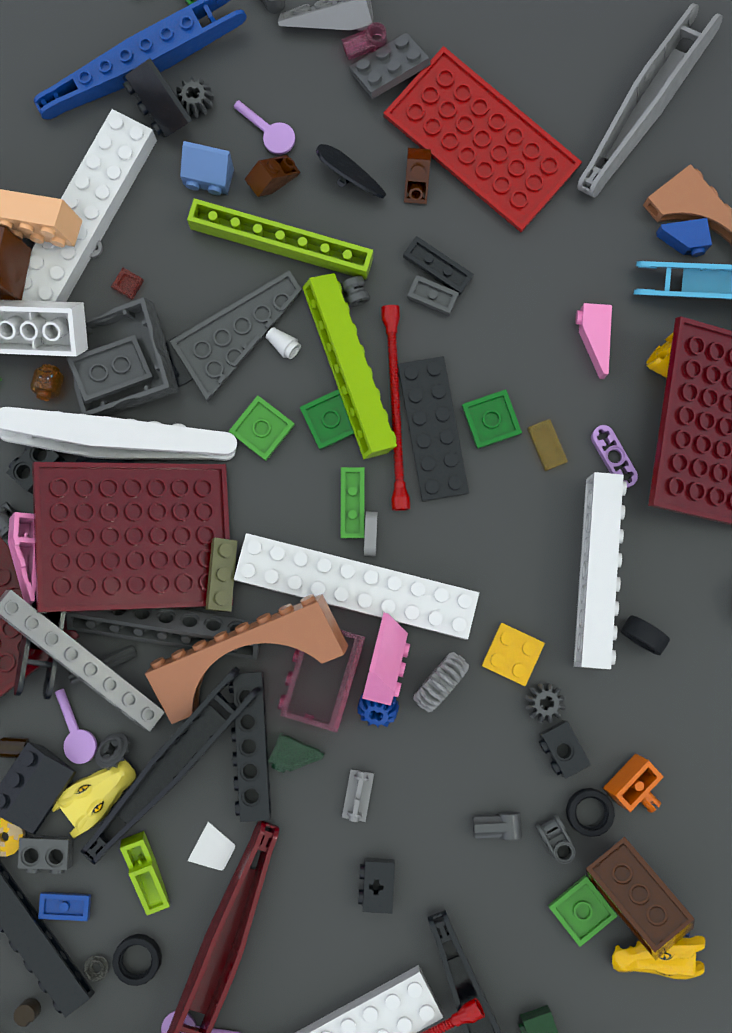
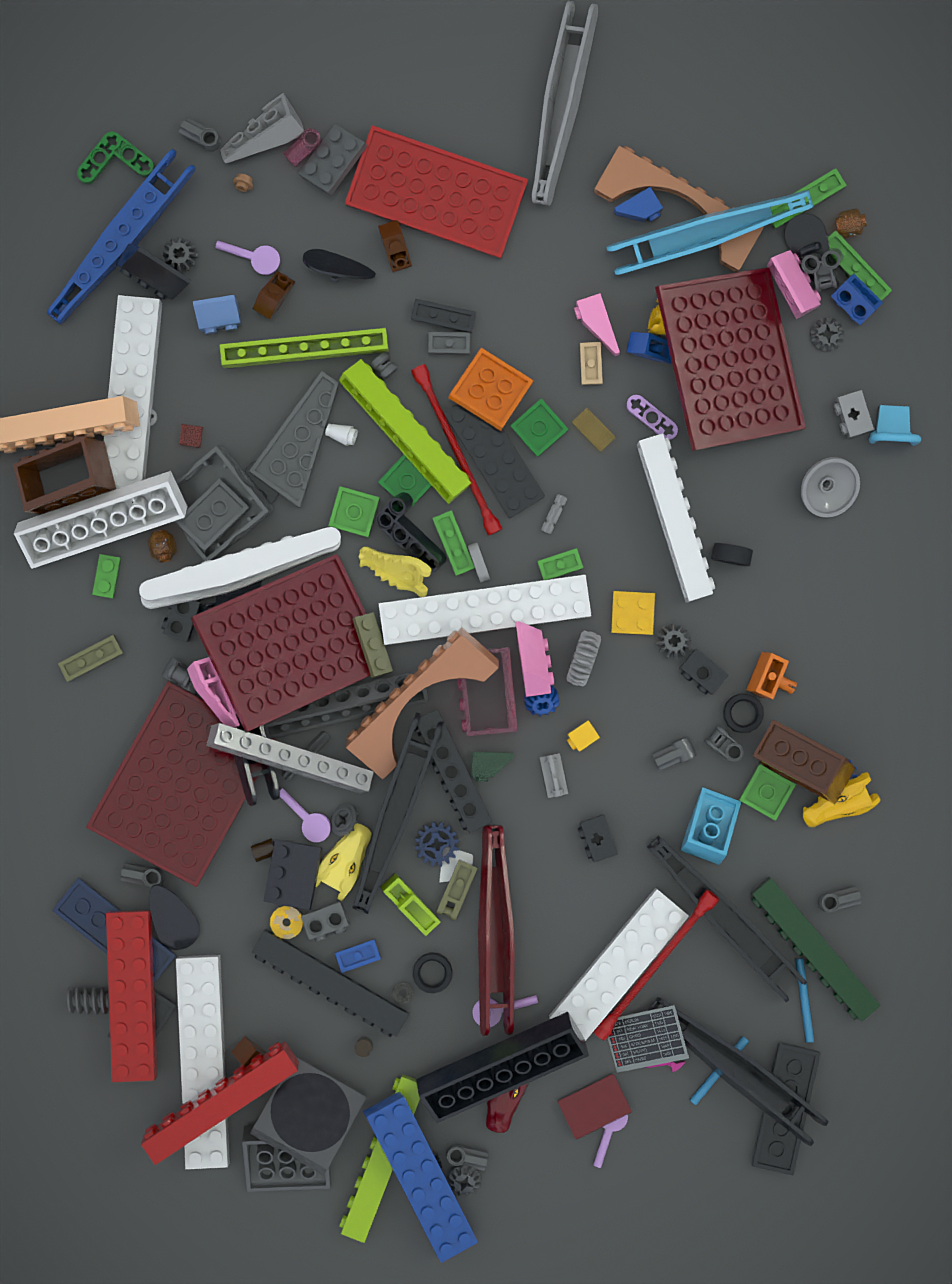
camera: 20 degrees left, 5 degrees up
(198, 829) = (435, 835): none -> dark blue gear
(202, 877) = (457, 889): none -> olive plate
(283, 507) = (399, 570): none -> light yellow animal
(289, 52) = (243, 182): none -> medium nougat plate
(313, 476) = (413, 533): none -> black beam
(405, 766) = (582, 736): none -> yellow brick
(456, 571) = (560, 564): none -> bright green plate
(457, 358) = (490, 389): none -> orange plate
(471, 515) = (554, 514): none -> light grey axle
(506, 924) = (711, 826): none -> medium azure slope
(572, 375) = (591, 363): none -> tan plate
(641, 382) = (649, 347): none -> blue slope

